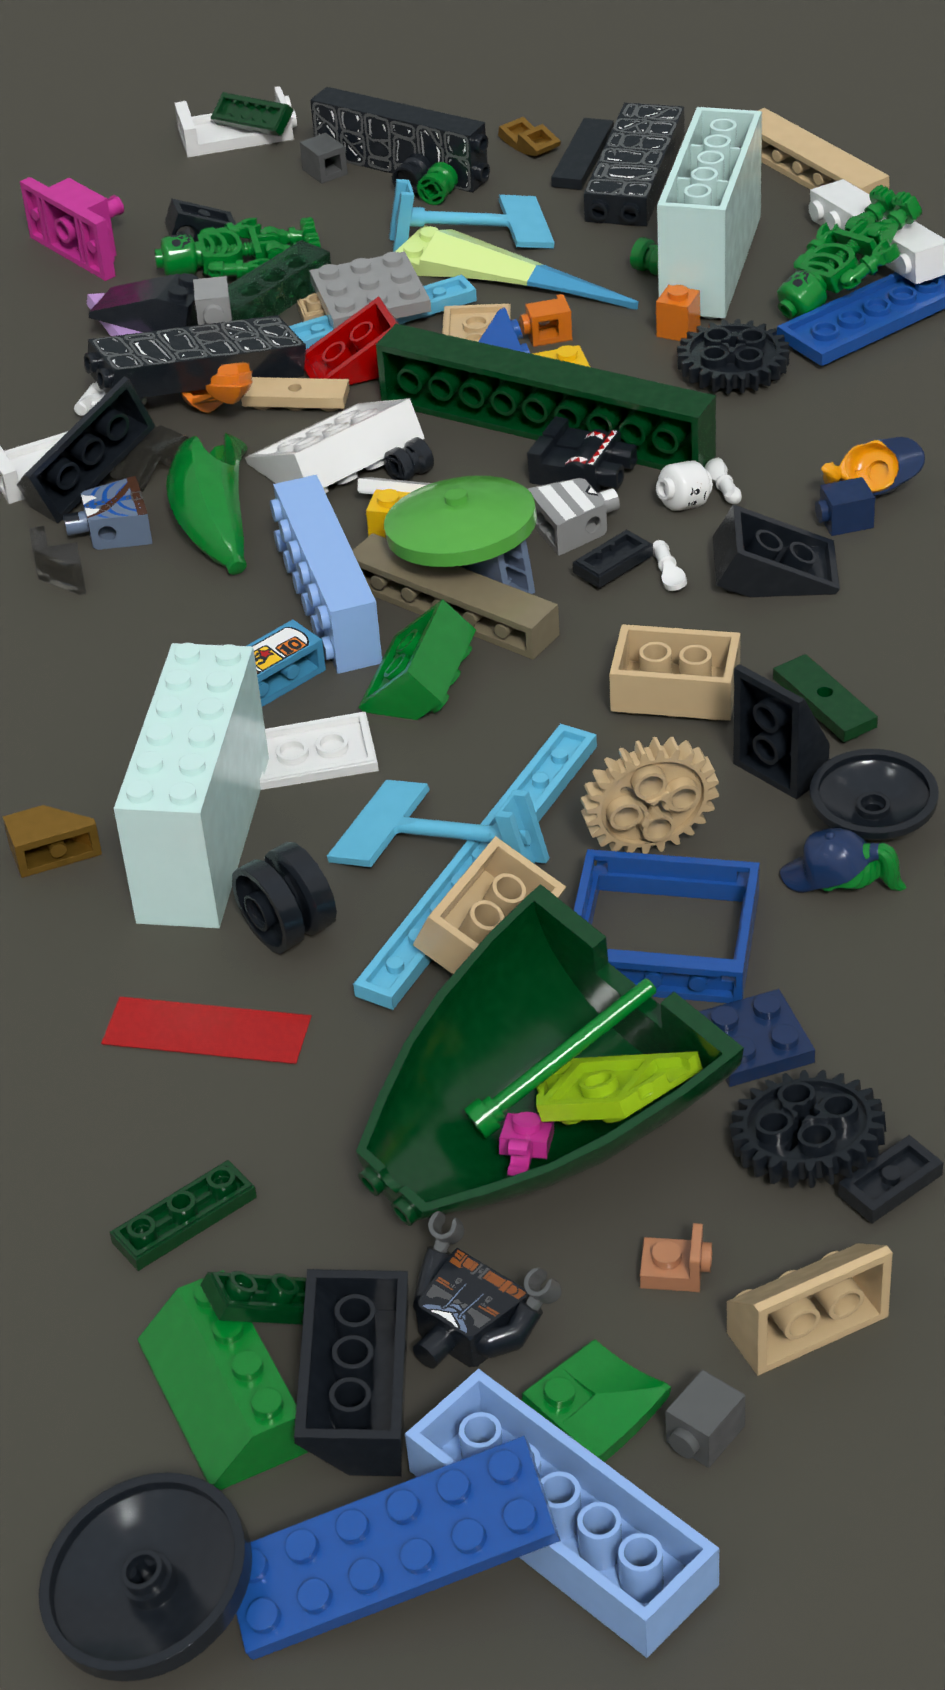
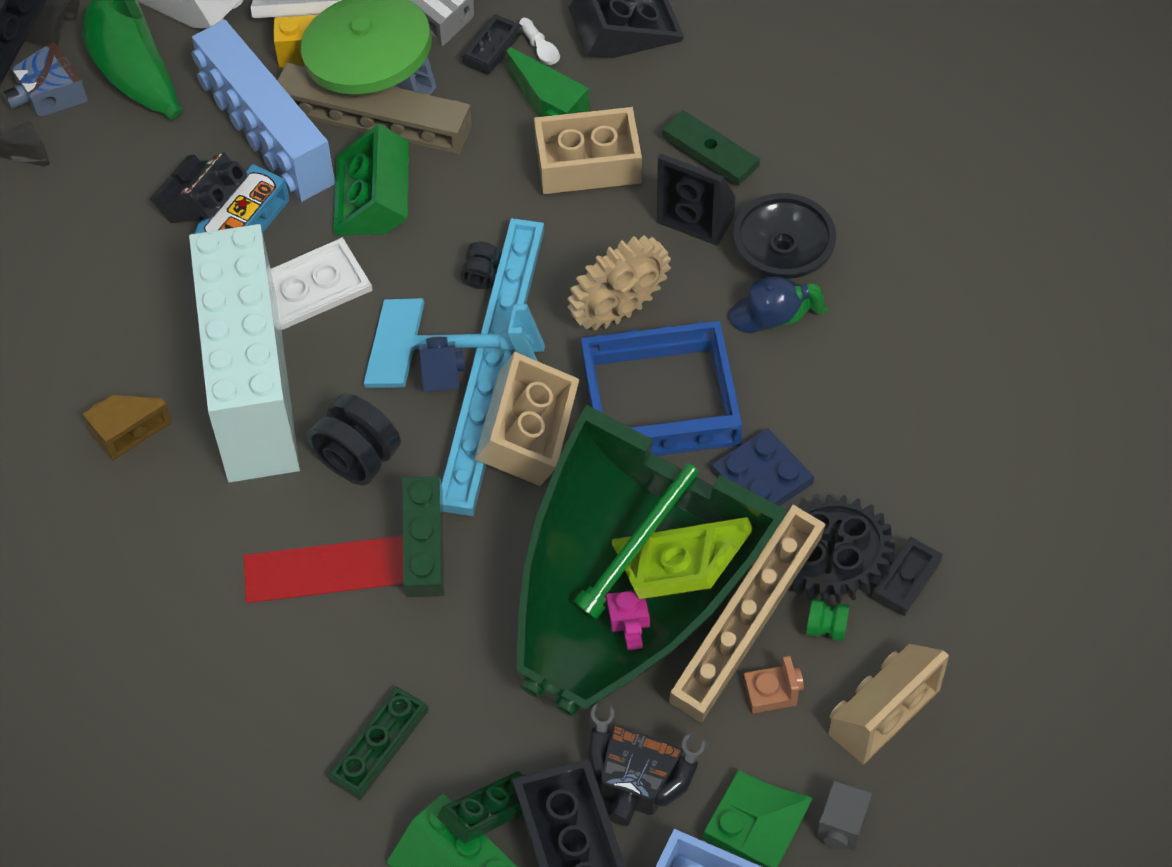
camera: 20 degrees left, 15 degrees up
(230, 624) = (198, 187): none -> black hips
(319, 1010) = (423, 536): none -> dark green brick
(415, 846) = (440, 364): none -> dark blue brick
(505, 762) = (480, 265): none -> black wheel
(653, 602) = (546, 88): none -> green slope
(663, 1164) = (746, 614): none -> tan brick
(768, 1203) = (827, 620): none -> green wheel

